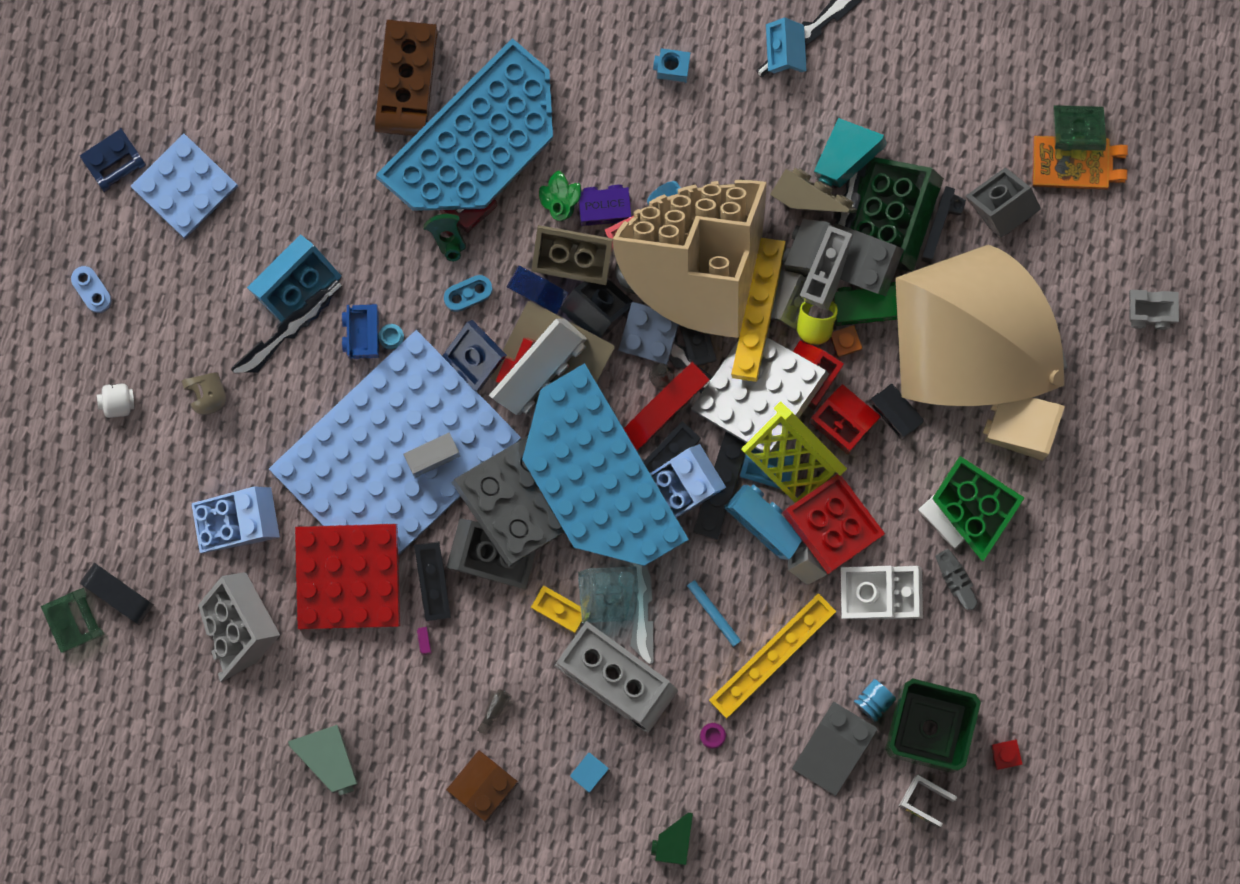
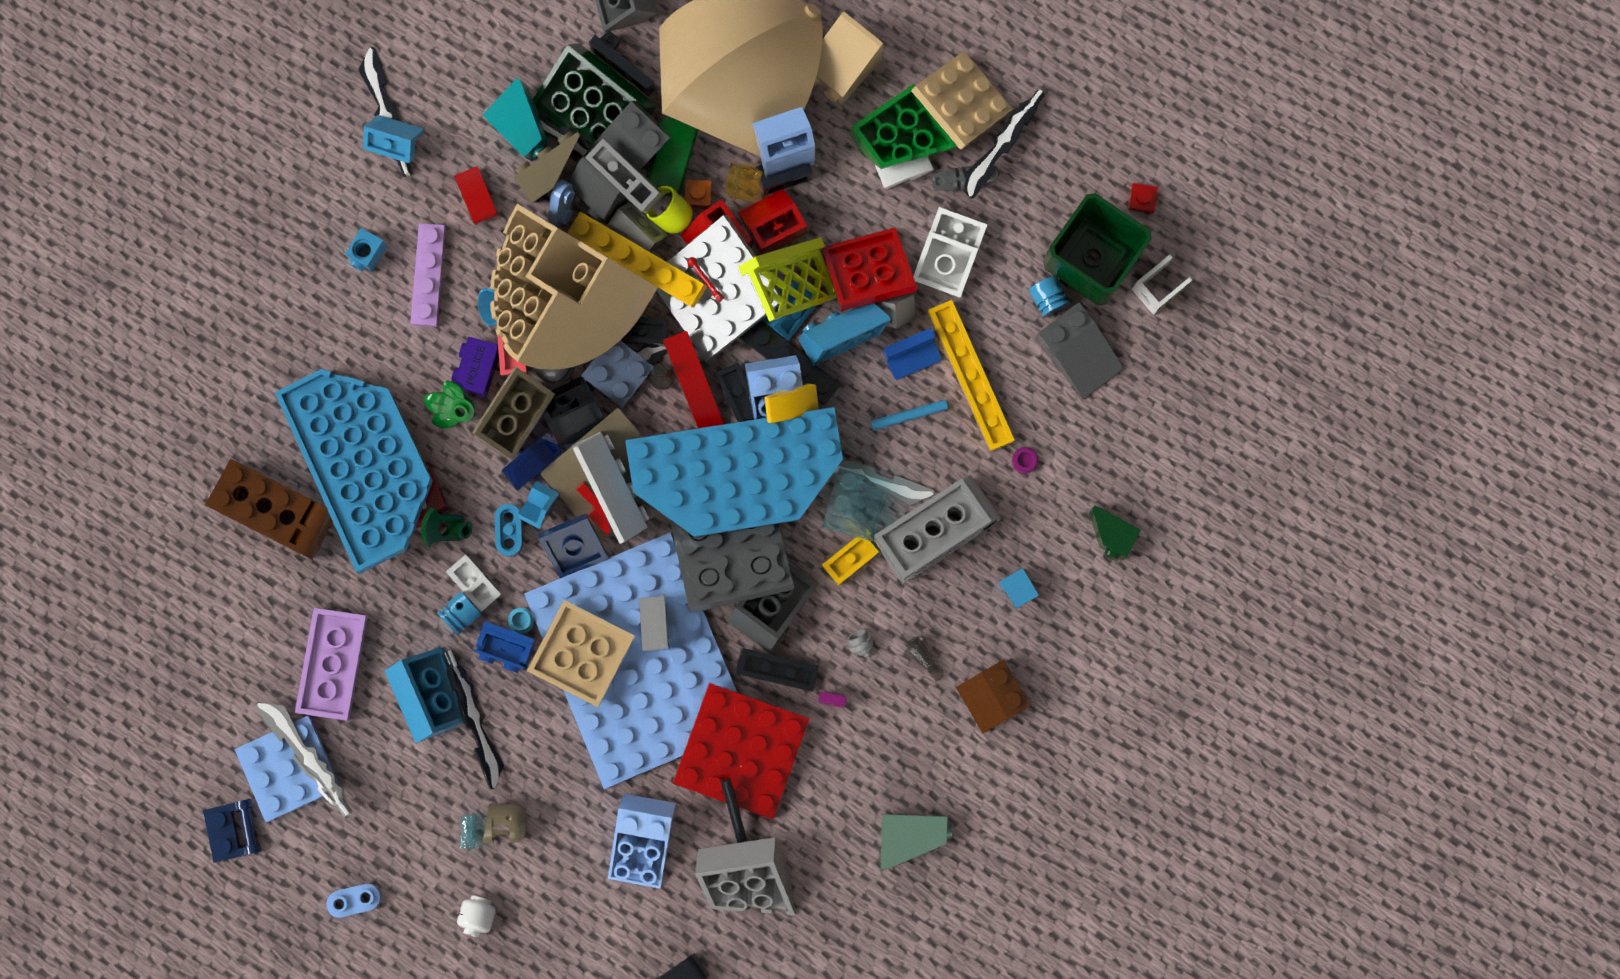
camera: 70 degrees left, 0 degrees up
(187, 364) = (468, 831): none -> clear light blue pin
(199, 198) = (306, 757): none -> light grey sword
(289, 186) = (331, 664): none -> lavender plate
(291, 590) = (733, 809): none -> black bar
(376, 279) = (459, 613): none -> dark azure piece
(380, 400) = (581, 653): none -> tan plate
(409, 281) = (473, 582): none -> white slope
(485, 648) = (860, 643): none -> light grey plate
(499, 310) = (538, 505): none -> dark azure panel
(673, 129) = (428, 275): none -> lavender plate
(674, 498) = (791, 404): none -> yellow slope
(763, 142) = (475, 195): none -> red slope
(771, 595) = (912, 354): none -> blue panel
(773, 359) = (692, 262): none -> red hinge
(783, 221) = (560, 203): none -> light blue plate
(871, 378) = (743, 182): none -> clear yellow panel
(917, 399) = (785, 142): none -> light blue slope
(1005, 603) = (1003, 142): none -> black sword
(1029, 549) = (962, 100): none -> tan plate

